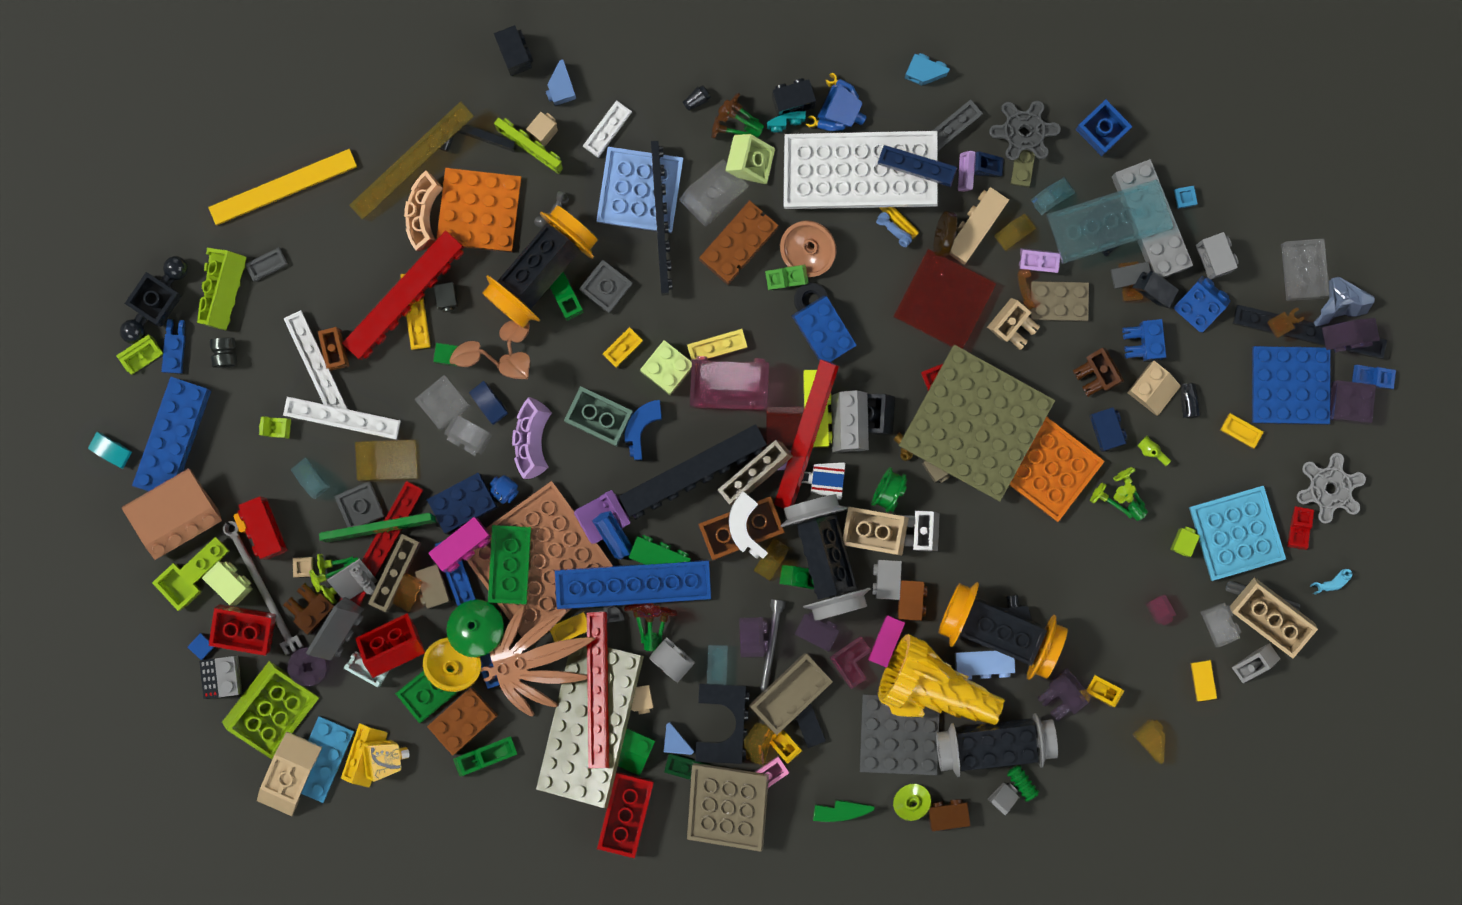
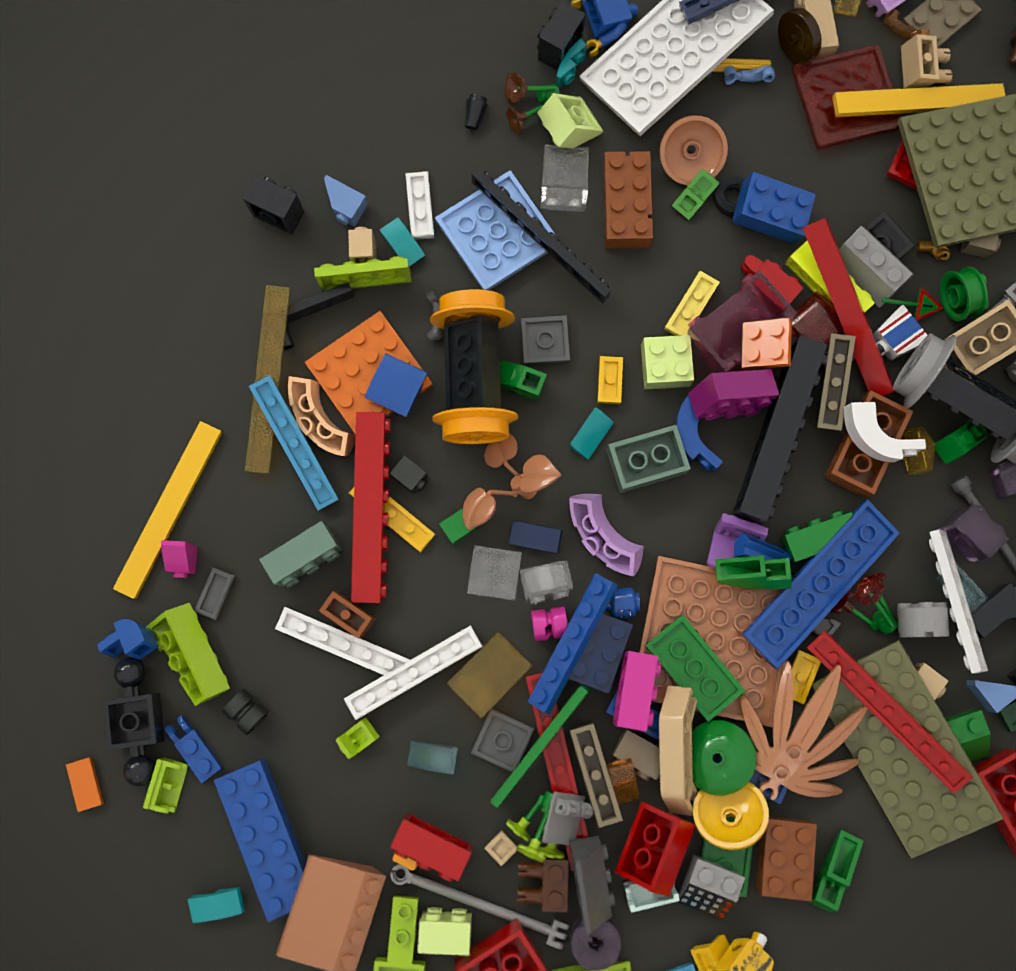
camera: 40 degrees left, 5 degrees down
(93, 311) = (84, 784): none -> orange tile
(194, 247) = (129, 638): none -> blue brick
(263, 225) = (179, 558): none -> dark pink slope
(337, 289) = (301, 555): none -> sand green brick
(393, 214) = (294, 442): none -> dark azure plate
(402, 697) = (710, 888): none -> light grey slope
(448, 462) = (549, 623): none -> dark pink wheel
(449, 485) = (572, 643): none -> blue plate
(453, 599) = (676, 750): none -> tan piece
(486, 233) = (396, 385): none -> blue slope
(573, 144) = (402, 241): none -> teal slope
(581, 370) = (591, 434): none -> teal slope
(595, 540) = (754, 572): none -> green slope
(683, 424) = (733, 394): none -> magenta brick
(702, 667) = (960, 610): none -> white plate
(732, 411) = (766, 344): none -> plate
(780, 377) = (787, 285): none -> red hinge
(861, 476) = (924, 306): none -> piece
(985, 343) = (911, 99): none -> yellow tile

